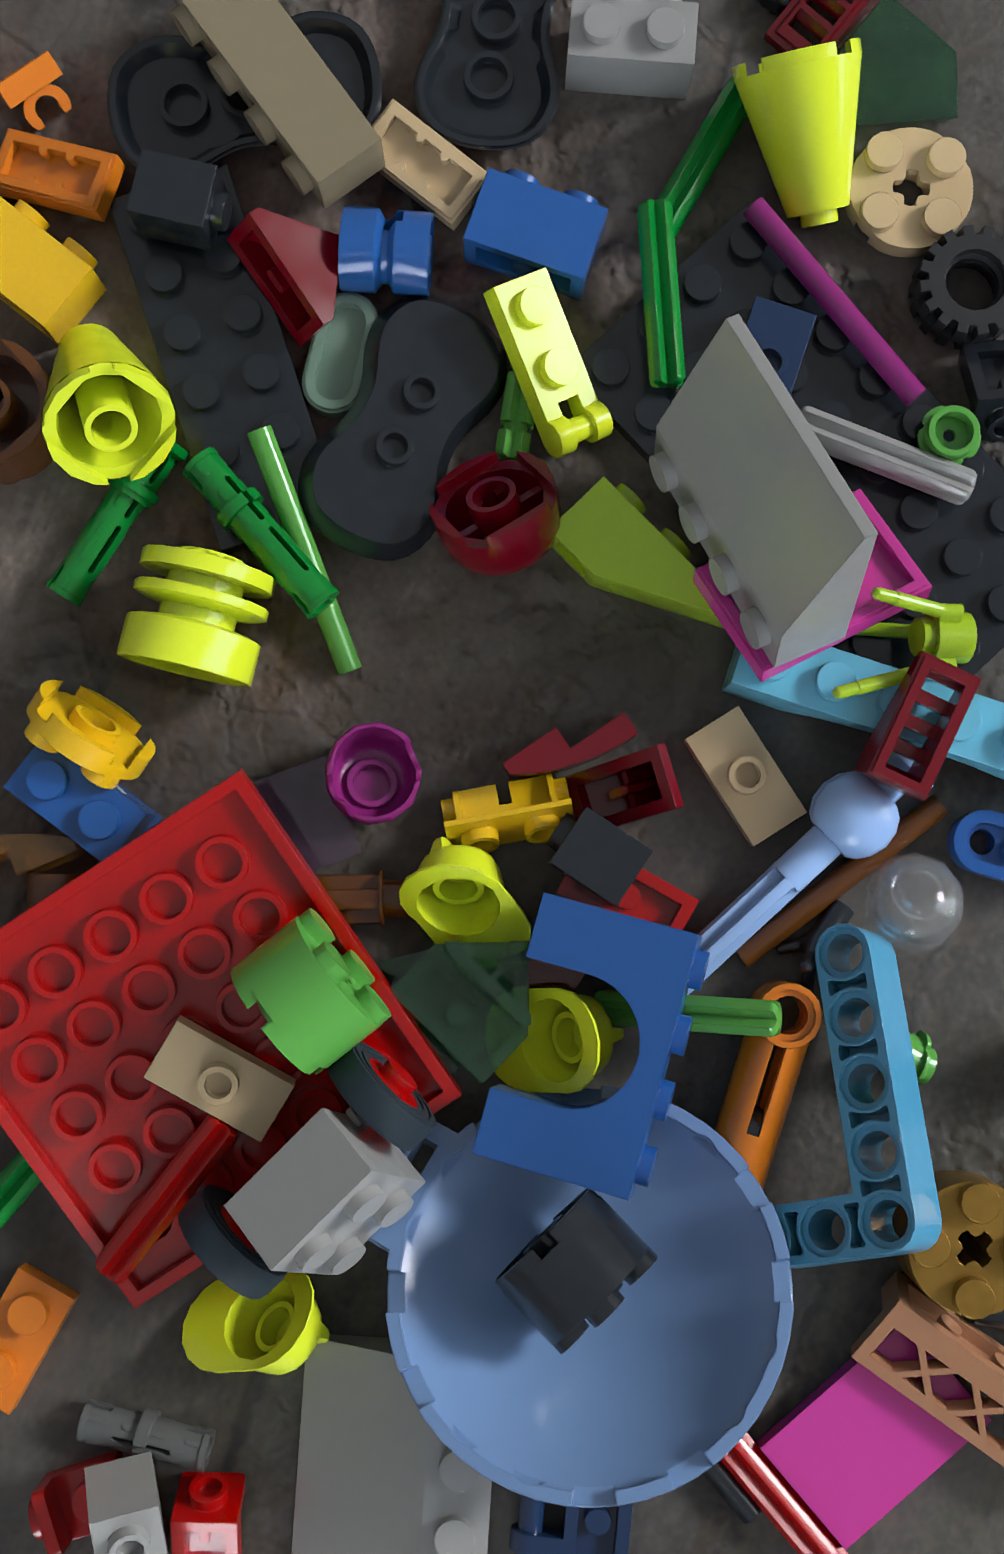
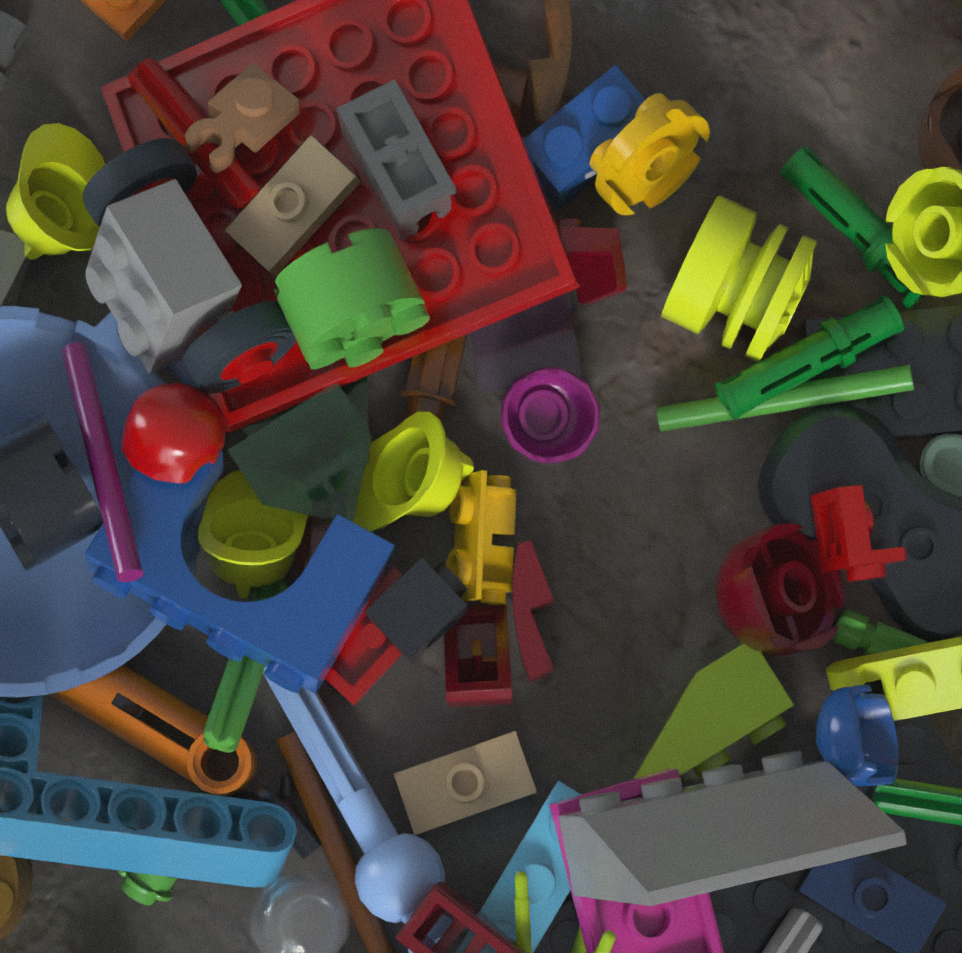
camera: 110 degrees right, 5 degrees down
(132, 1151) = (246, 112): none -> medium nougat plate
(149, 982) = (396, 157): none -> dark grey hinge
(206, 763) = (595, 259): none -> dark red bracket
(432, 458) = (844, 535): none -> red bracket
(484, 1141) = (173, 432): none -> red hair
(531, 1206) = (102, 463): none -> magenta bar
(622, 407) = (859, 736): none -> blue hair

